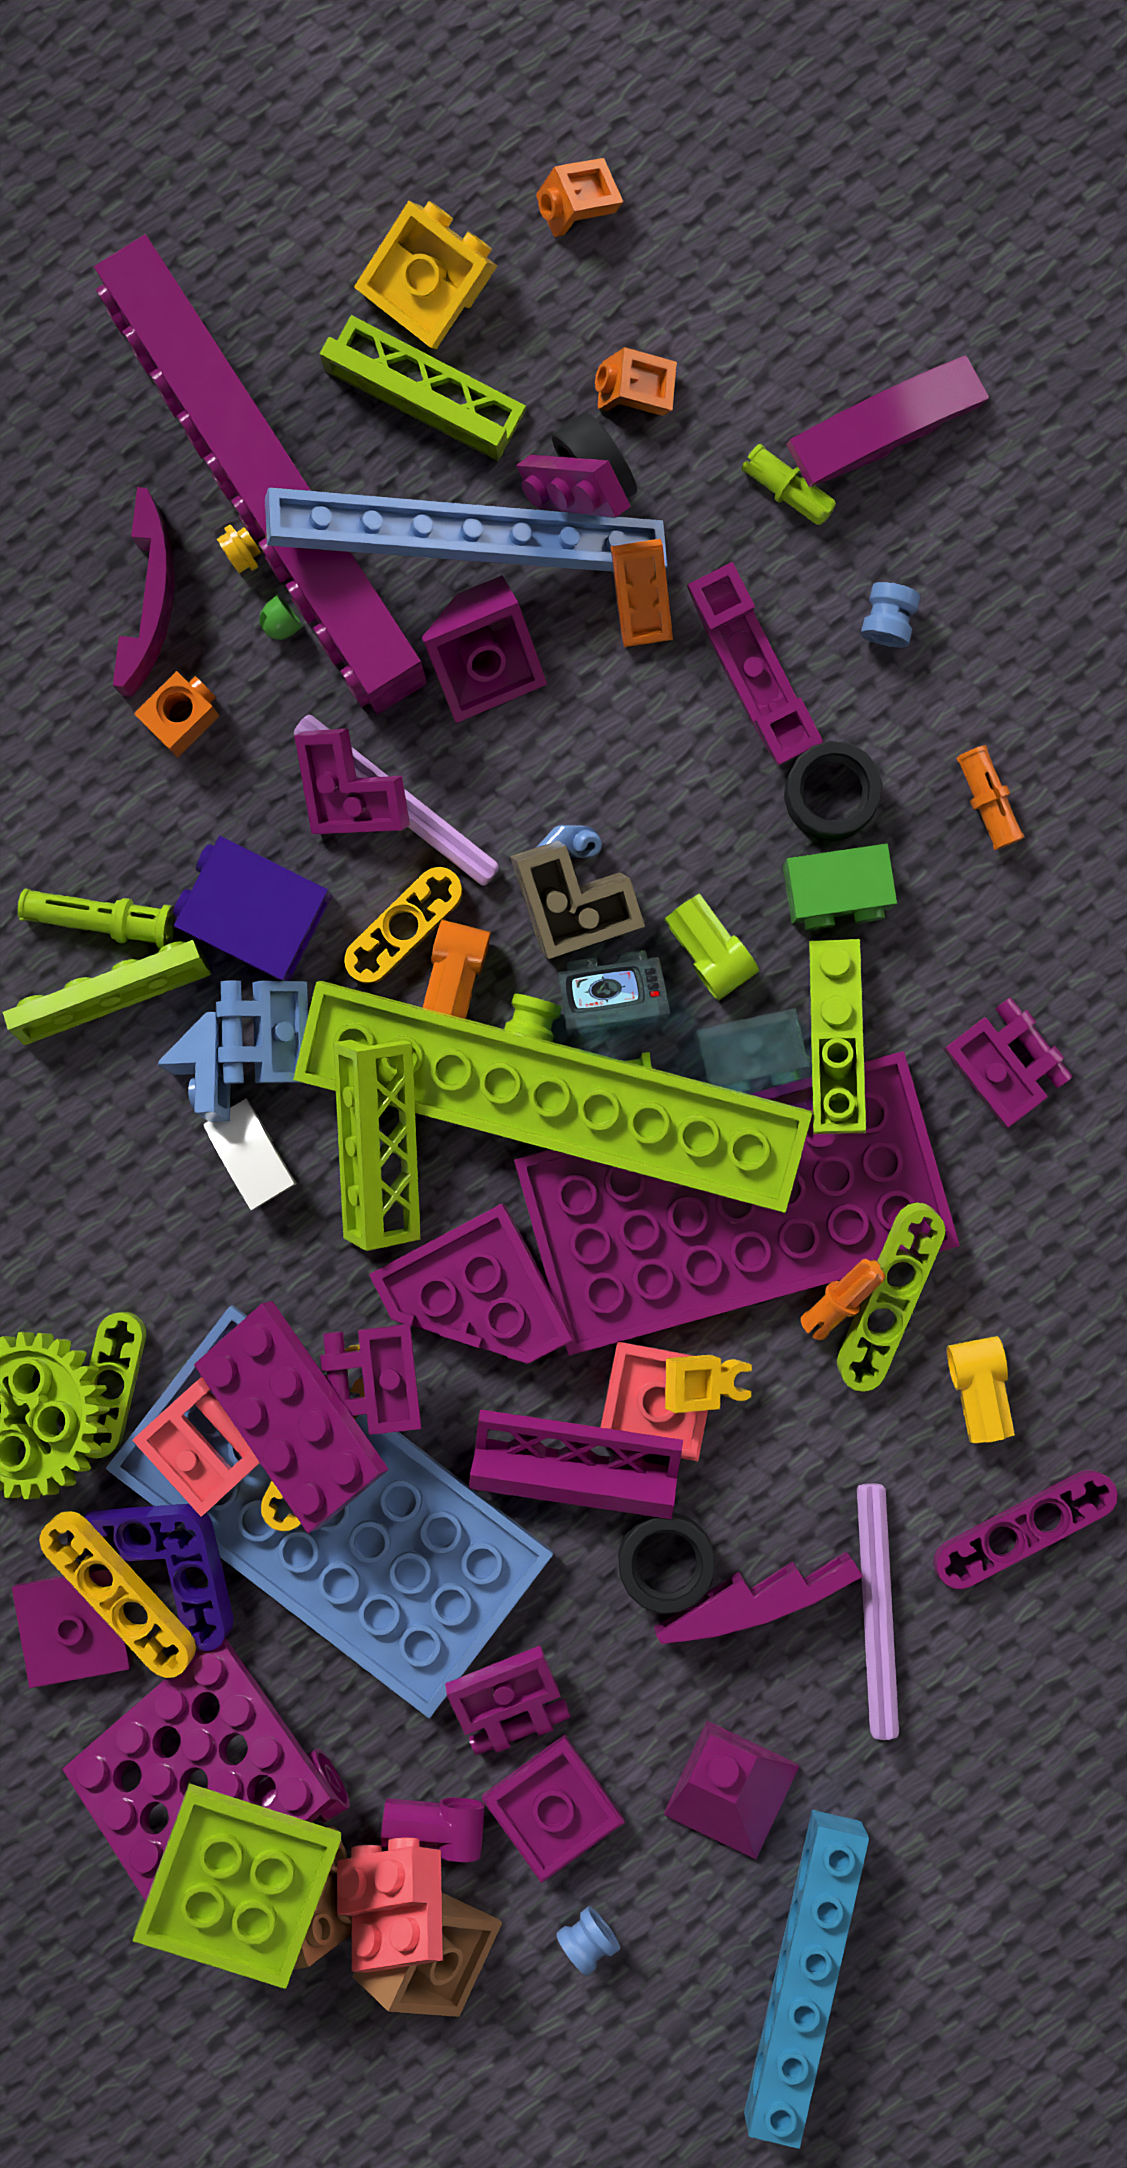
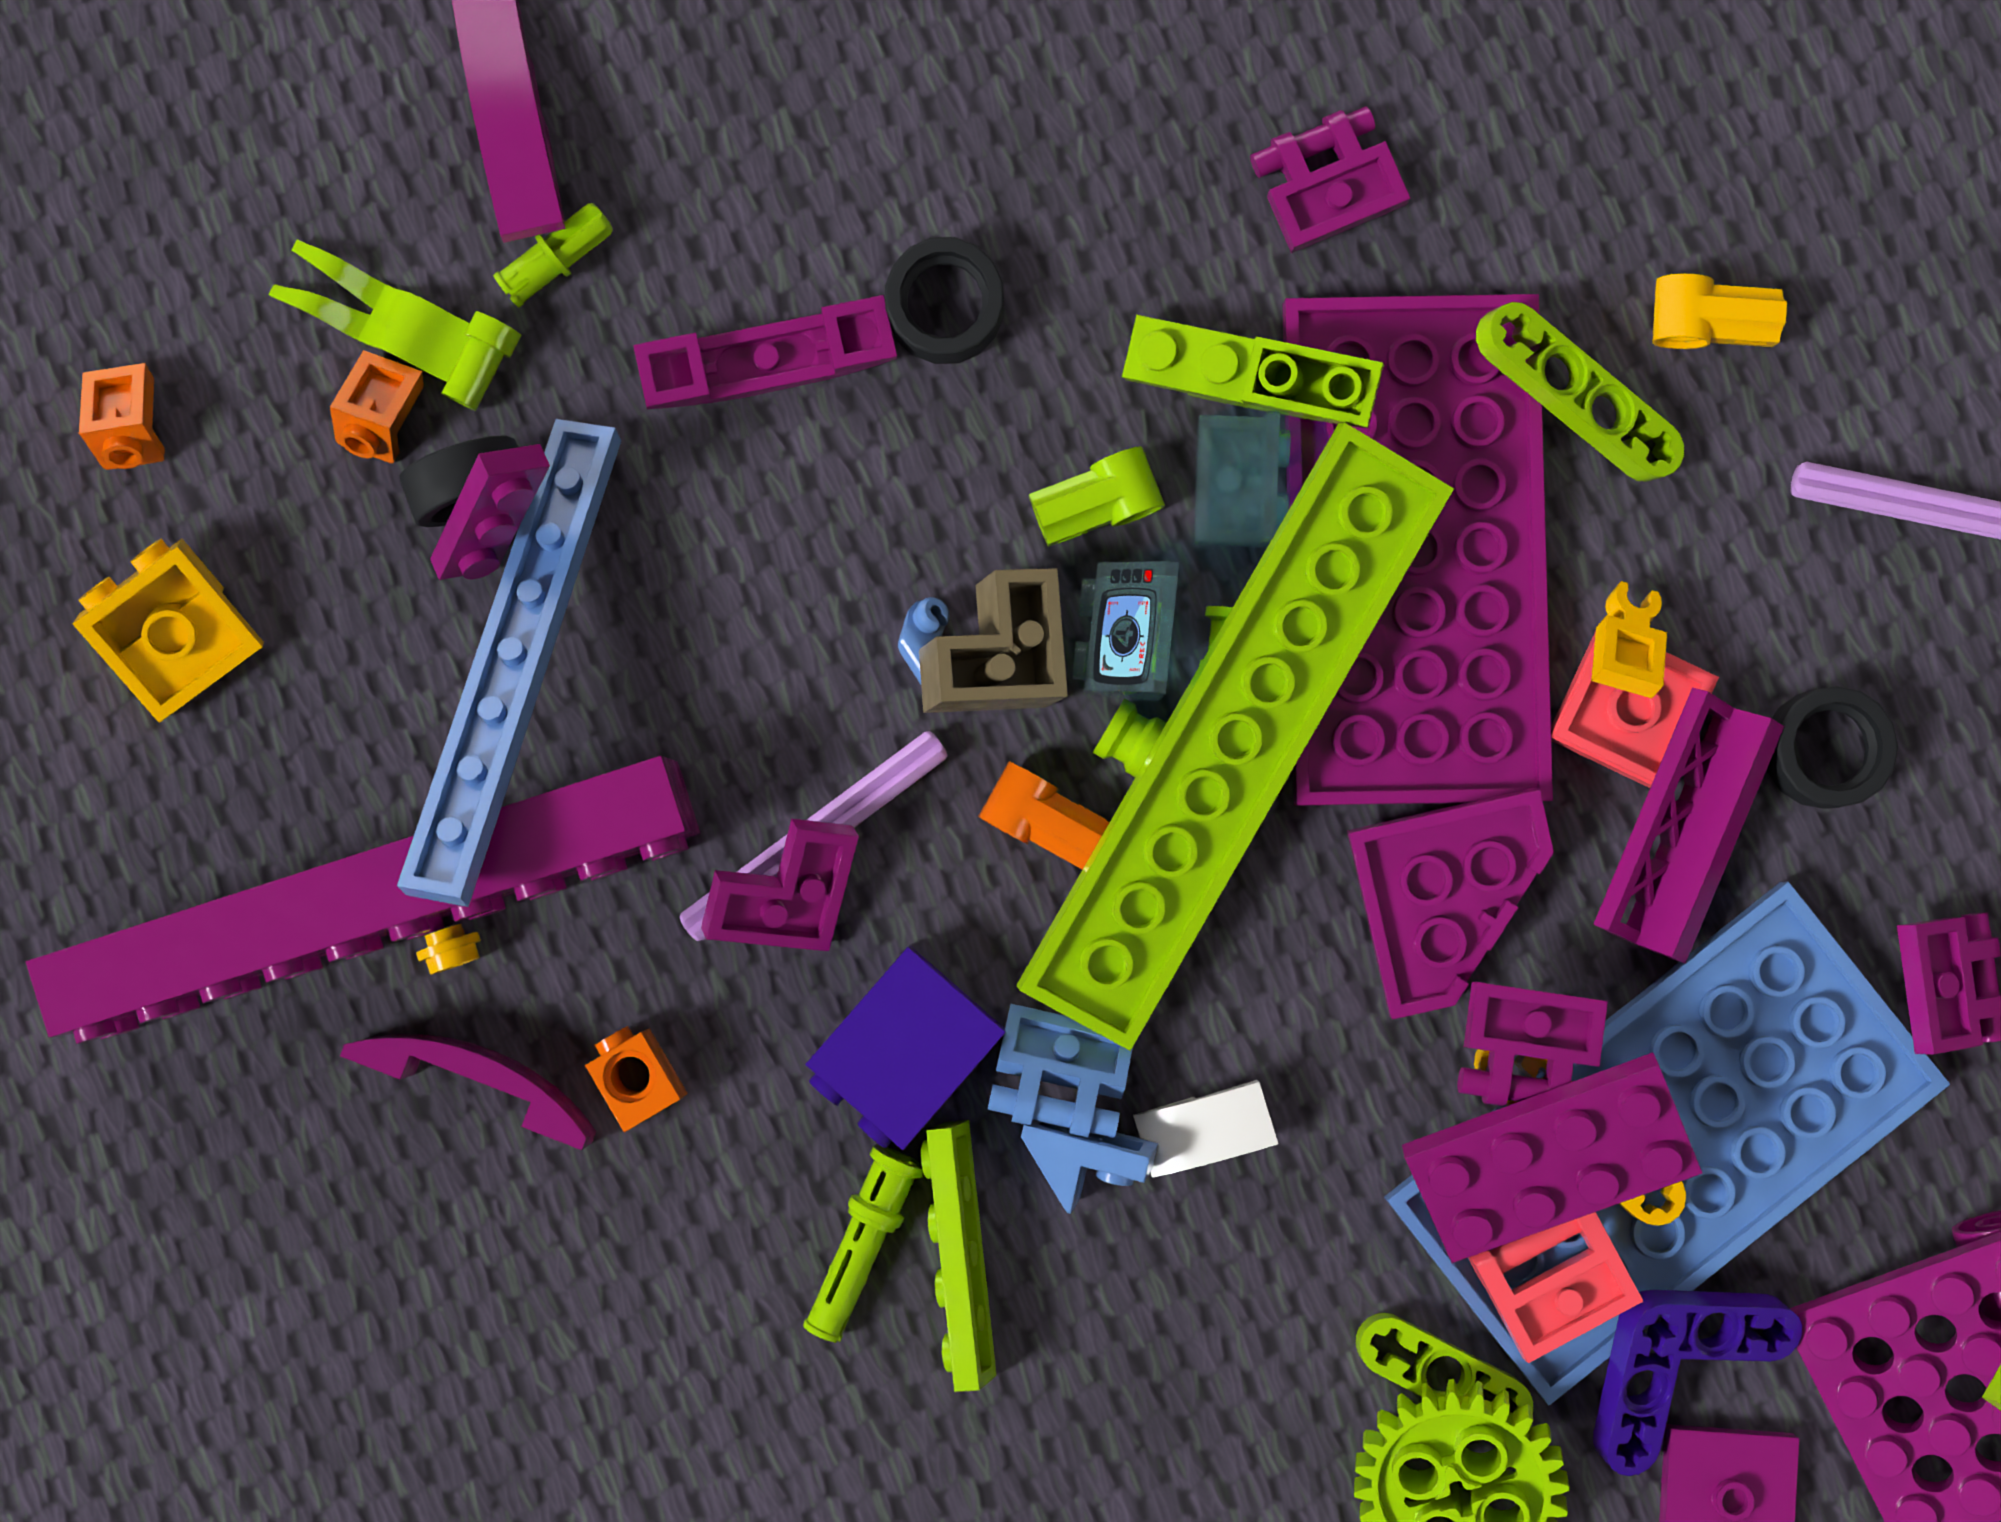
camera: 80 degrees left, 0 degrees up
(125, 1588) = (1705, 1418): yellow beam -> none
(279, 619) = (550, 922): bright green hinge -> none
(360, 1143) = (1233, 987): lime fence -> none
(418, 397) = (318, 680): lime fence -> none
(422, 891) = (934, 833): yellow beam -> none
(483, 650) = (657, 679): magenta slope -> none
(642, 592) = (640, 466): orange plate -> none
(703, 391) = (408, 327): none -> lime flag
(737, 1607) = (1906, 633): magenta slope -> none
(839, 886) = (1063, 322): bright green brick -> none
(843, 1298) = (1568, 449): orange axle -> none
(890, 614) = (747, 173): medium blue wheel -> none
(990, 797) = (1003, 113): orange pin -> none
(1028, 1536) = (1904, 307): magenta beam -> none

